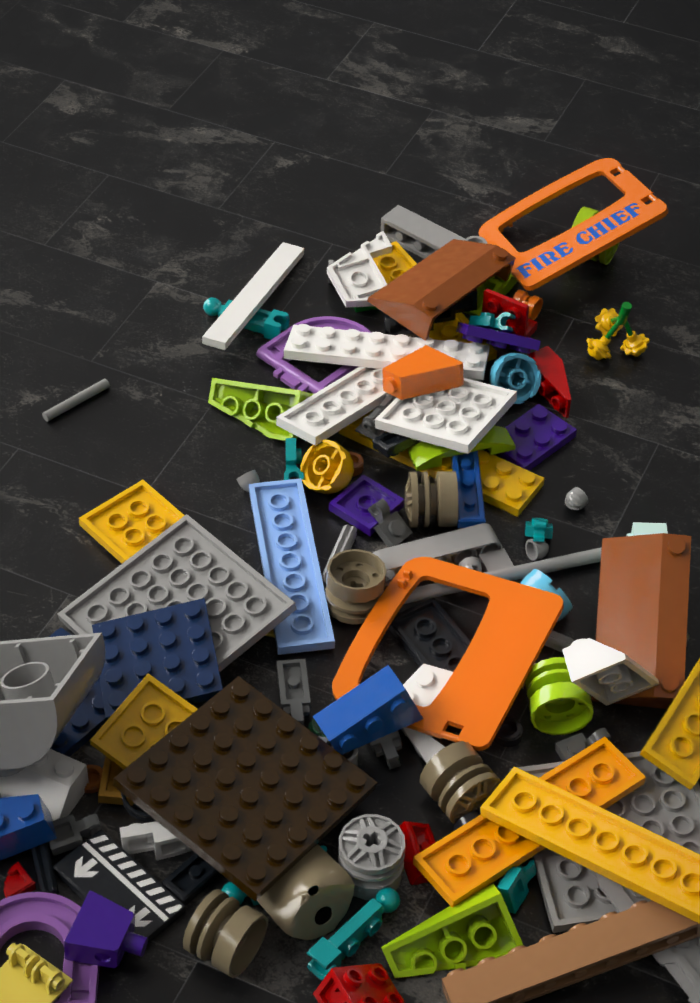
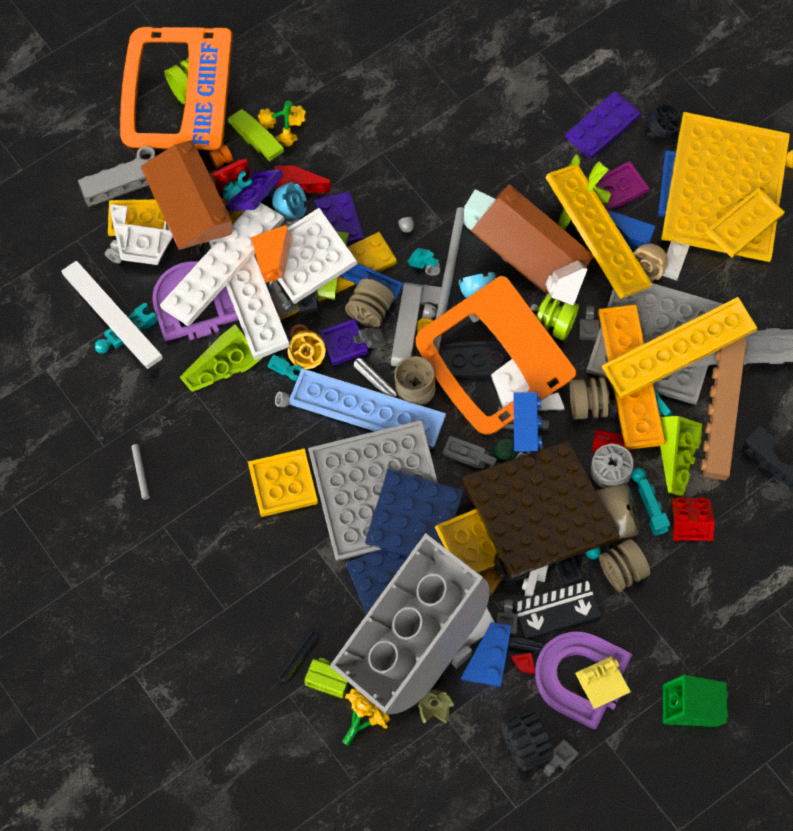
camera: 60 degrees left, 20 degrees up
(103, 933) = (591, 627): dark purple torso -> none
(578, 321) = (256, 134): none -> lime slope

